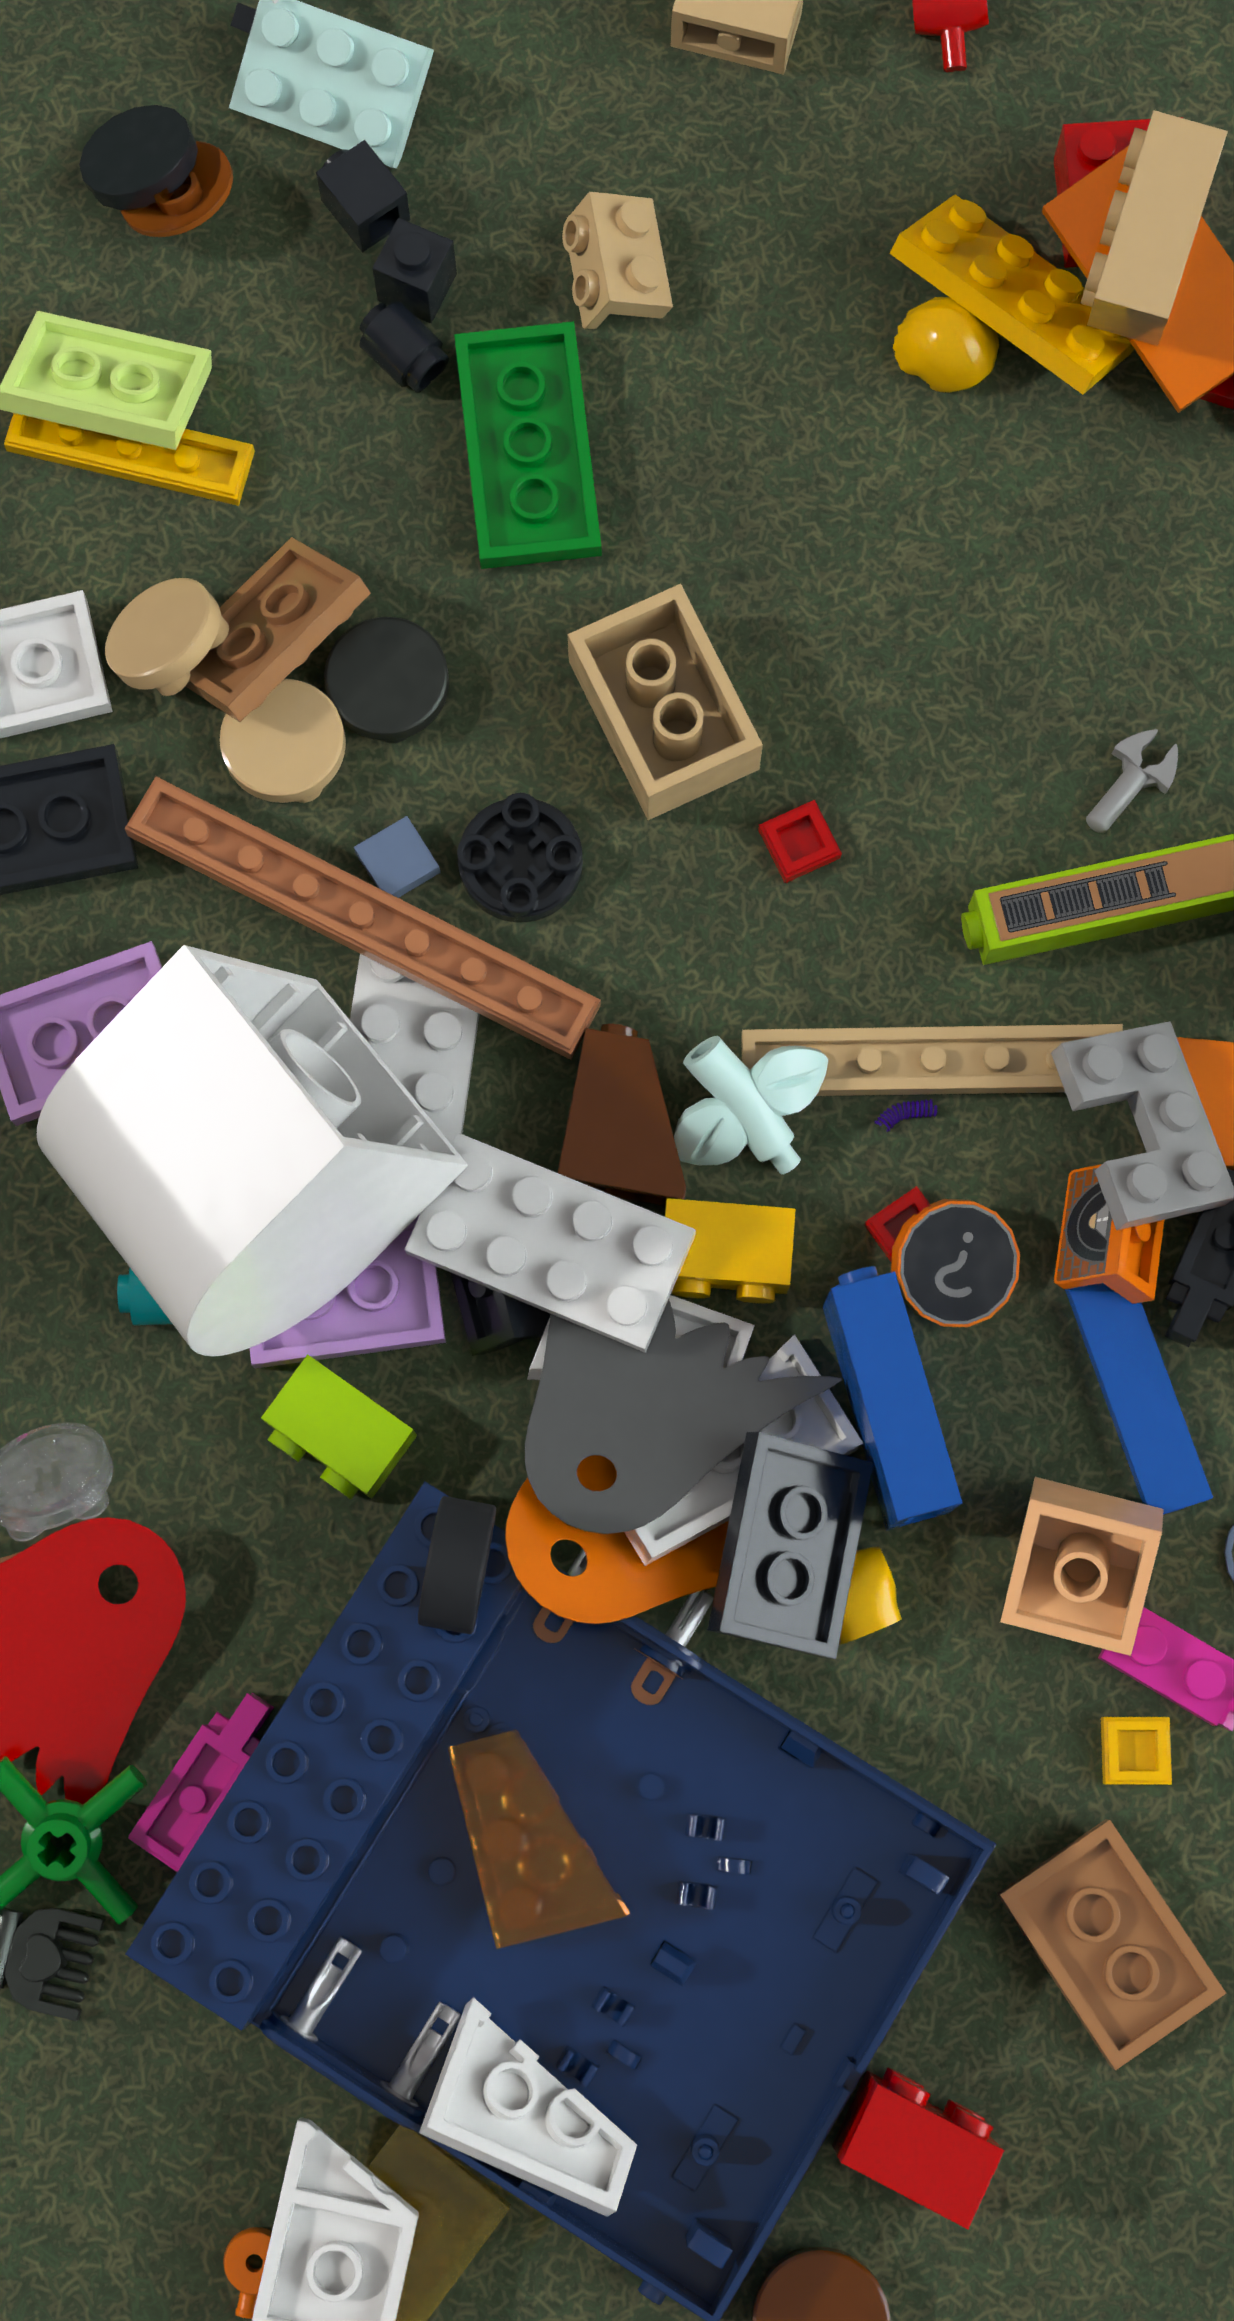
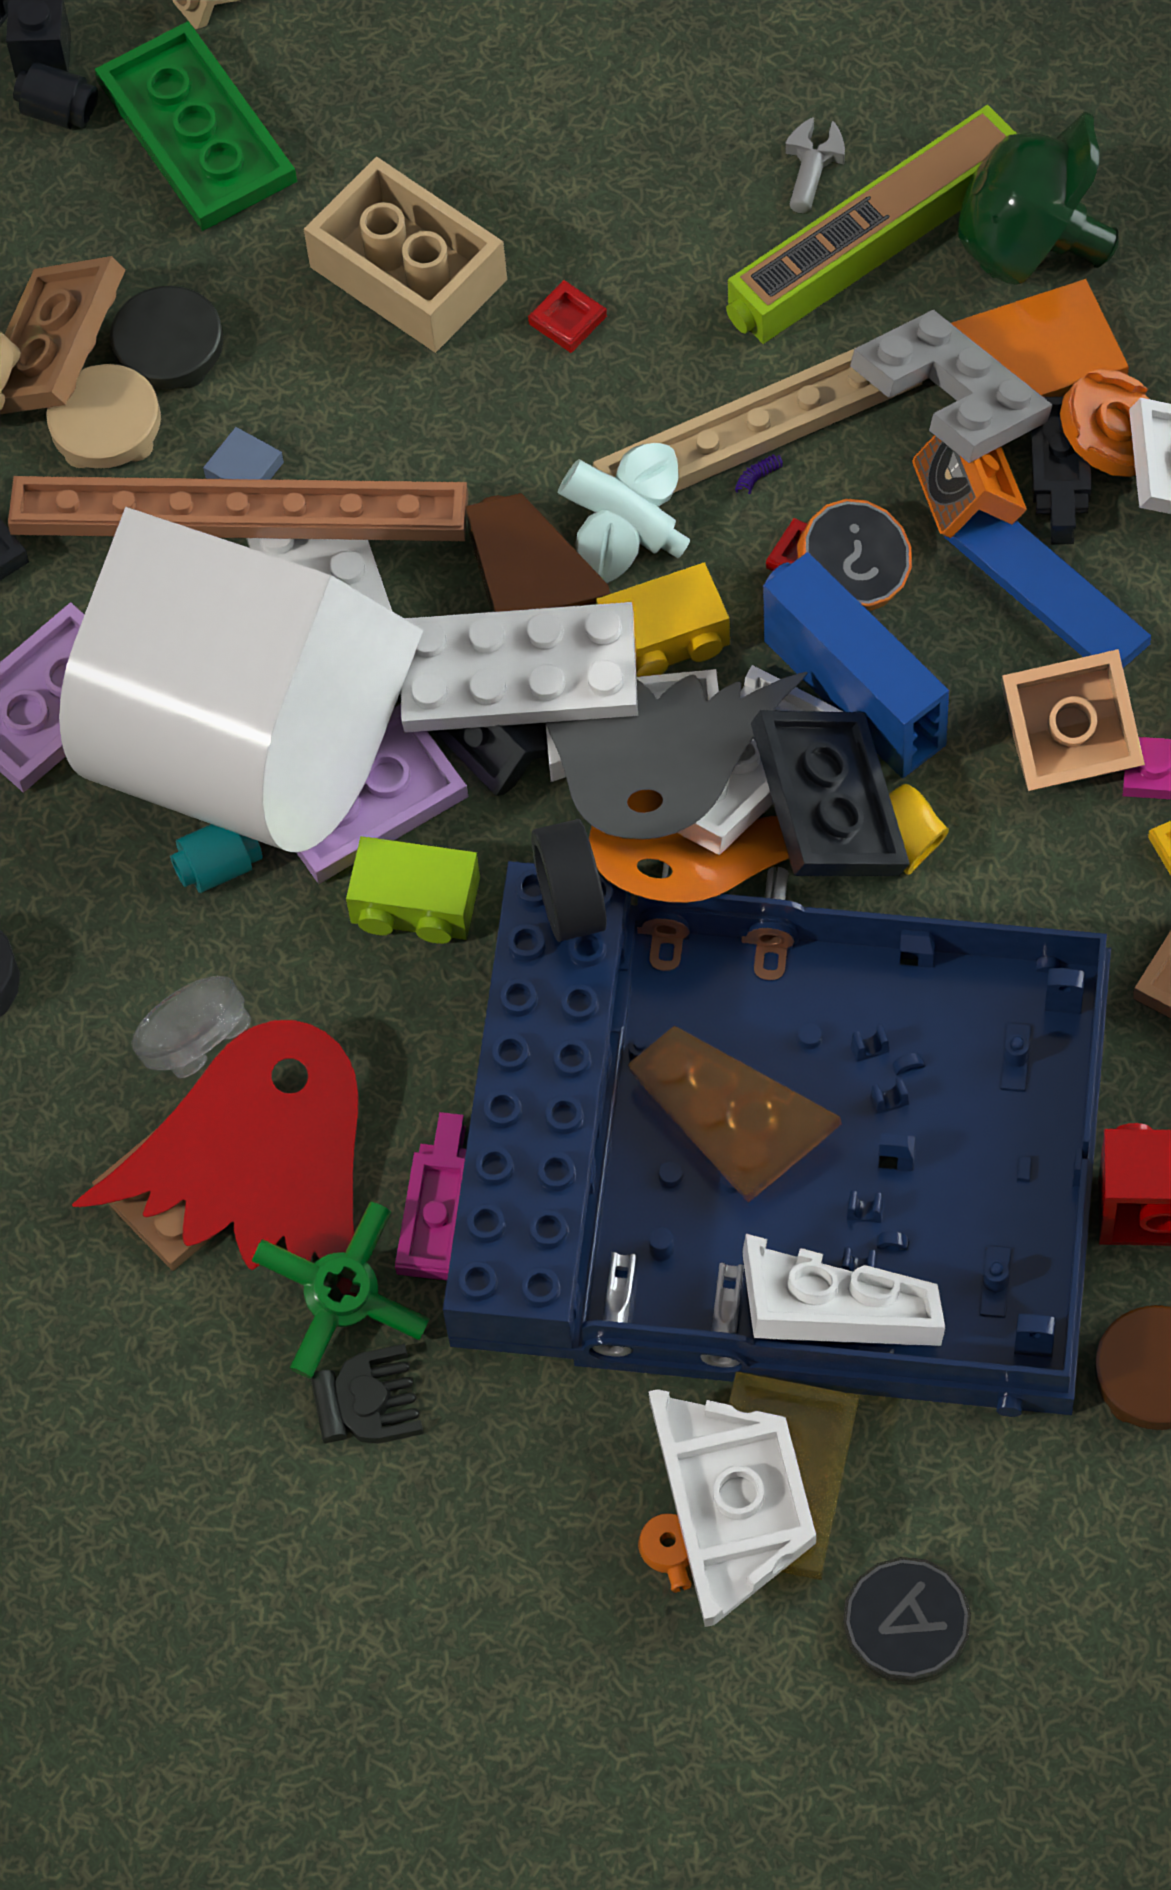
camera: 20 degrees left, 15 degrees down
(520, 859) = (345, 422): black tile -> none

